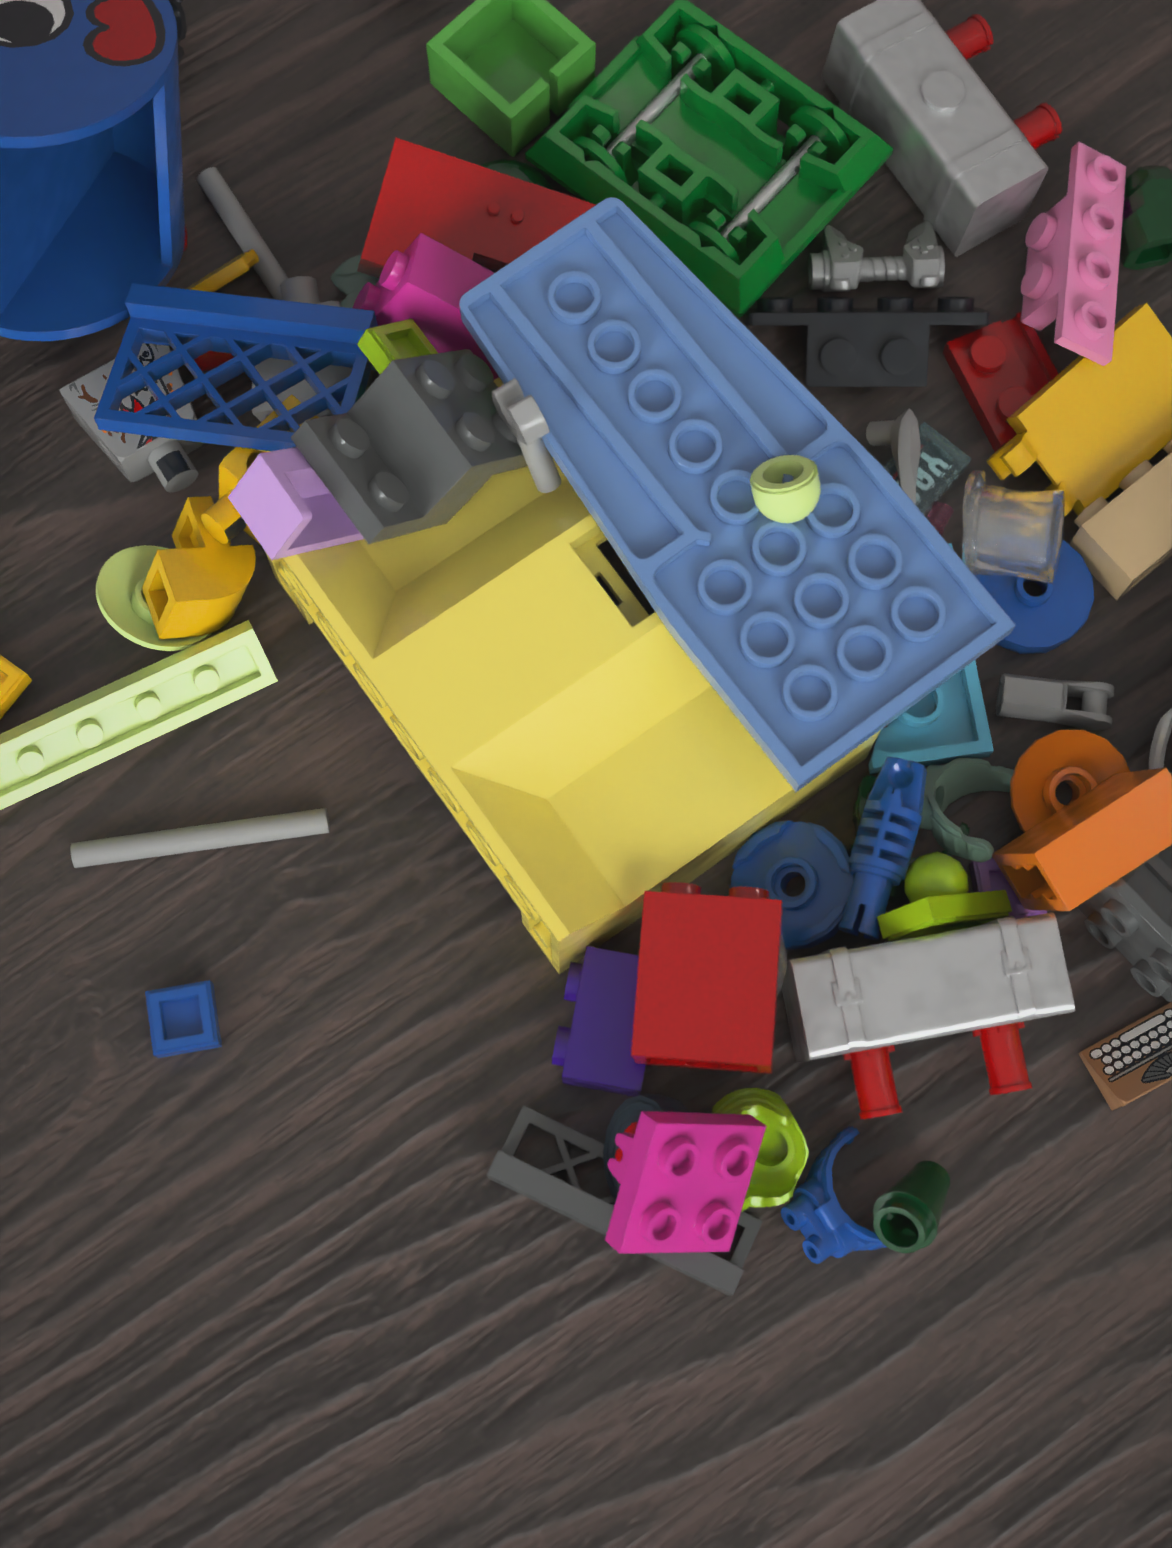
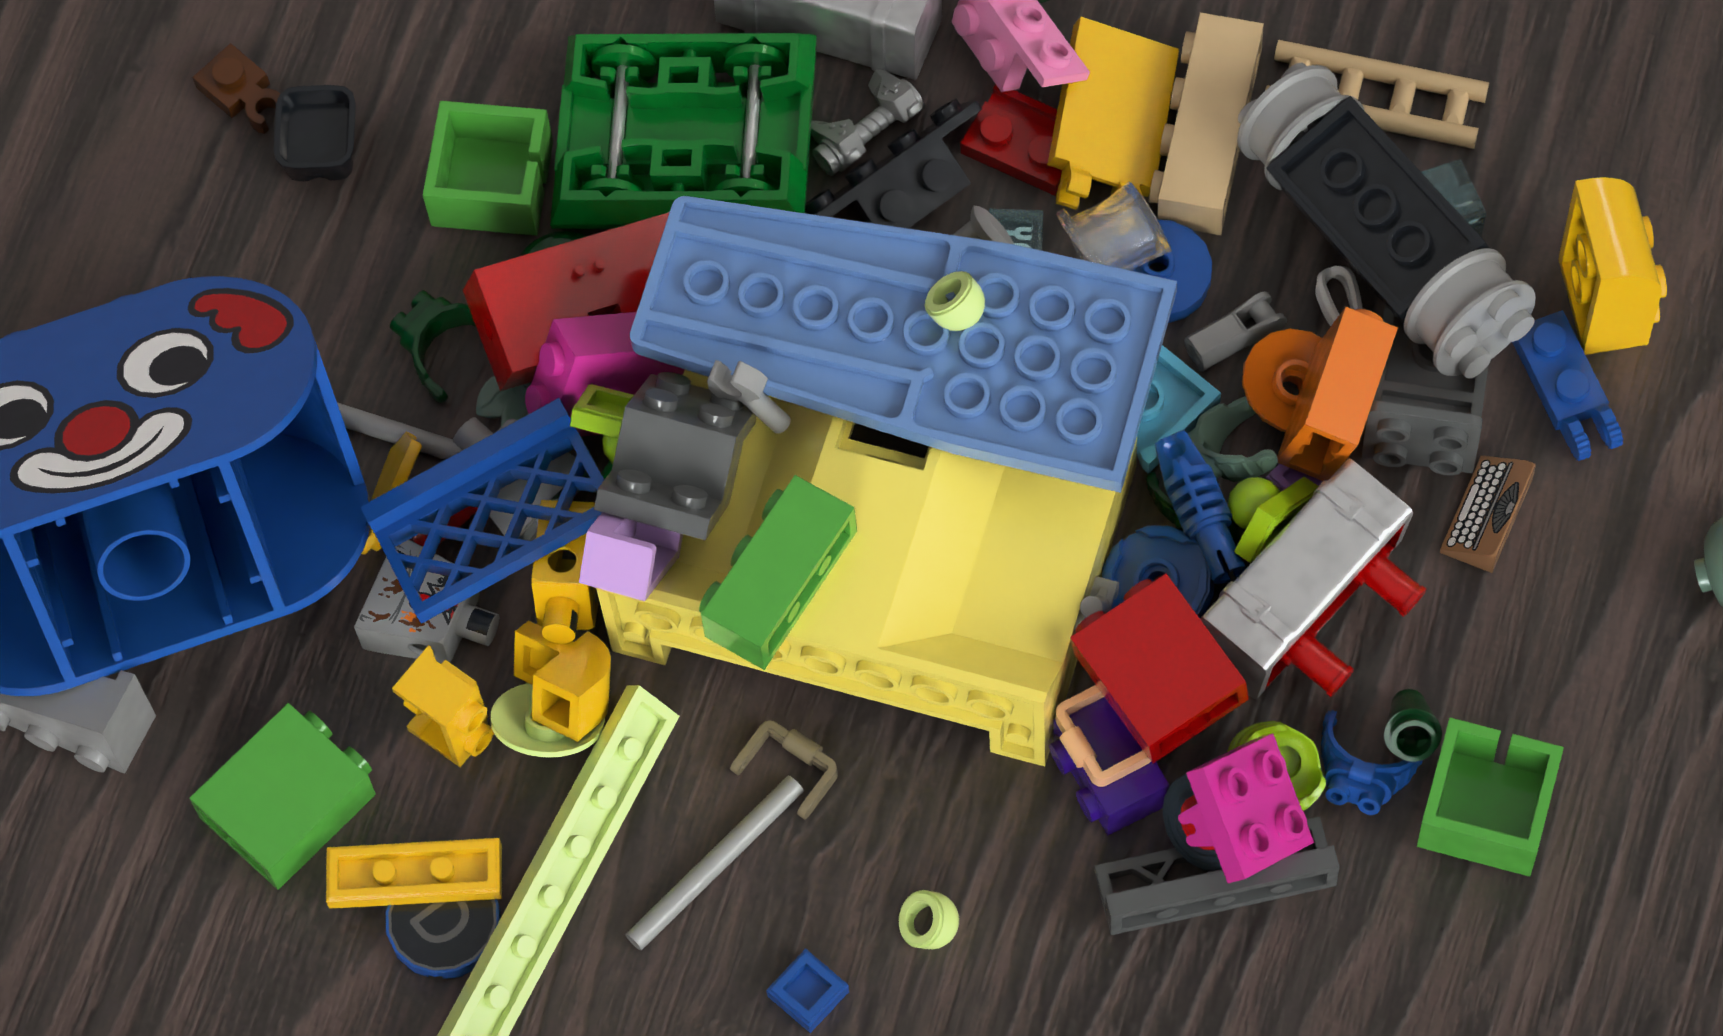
camera: 30 degrees left, 10 degrees down
(70, 517) = (446, 708): none -> yellow window
(343, 168) = (423, 324): none -> dark green helmet
(354, 1044) = (944, 922): none -> yellowish green piece
(359, 792) = (800, 747): none -> dark tan piece
(411, 624) = (777, 571): none -> bright green brick
(585, 994) = (1080, 748): none -> light nougat piece
(715, 870) = (1101, 596): none -> light grey bar
(926, 1342) = (1485, 807): none -> bright green piece

